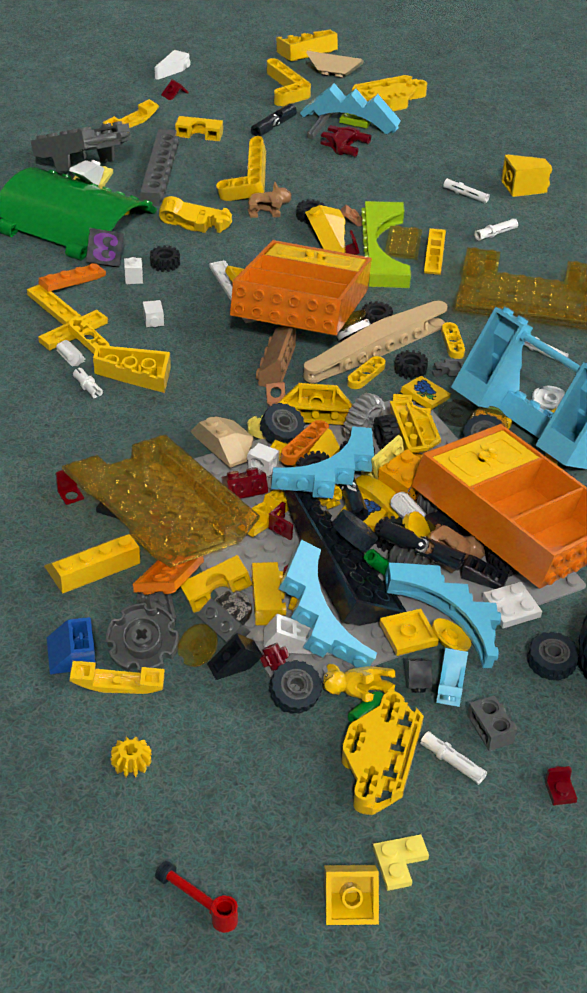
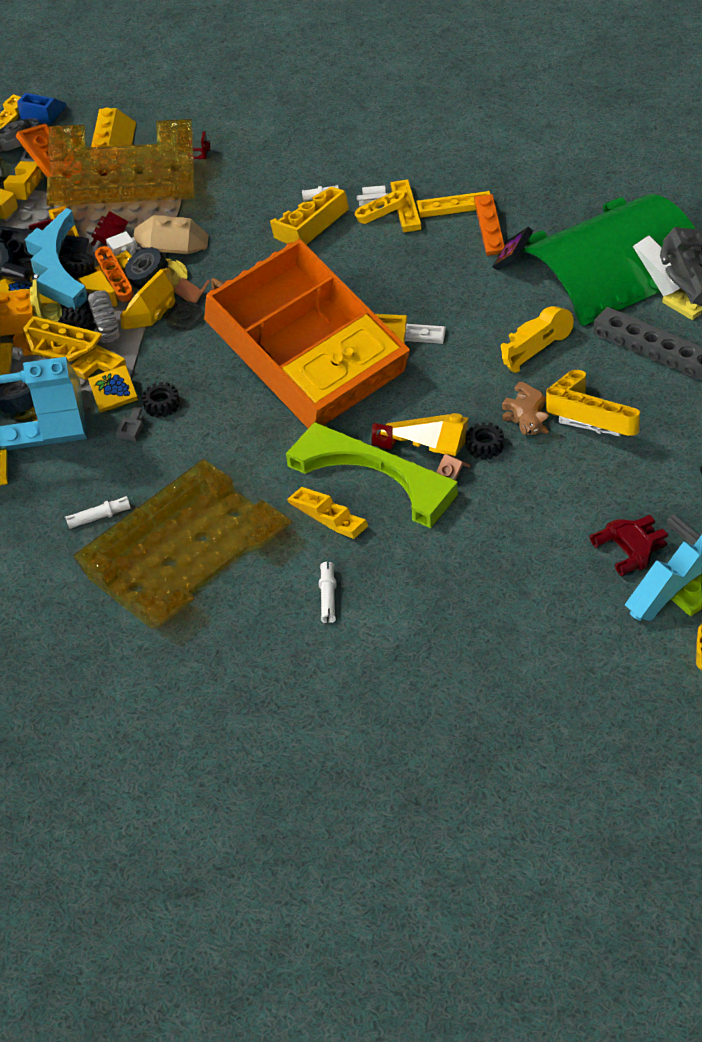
camera: 130 degrees right, 5 degrees up
(133, 270) = (465, 264): white brick -> none
(153, 313) = (385, 257): white brick -> none
(164, 258) = (473, 289): black tyre -> none
(353, 329) = (237, 372): white tile -> none
(354, 318) = (256, 384): clear yellow dish -> none
(368, 366) = (182, 362): yellow beam -> none
(376, 311) = (255, 418): black tyre -> none
(376, 340) = (208, 392): tan piece -> none
(403, 242) = (369, 497): clear yellow plate -> none
(449, 184) = (430, 608): white pin -> none
(455, 335) = (166, 446): yellow beam -> none
(525, 175) = (403, 667): yellow slope -> none
(548, 397) = (28, 480): white tile -> none

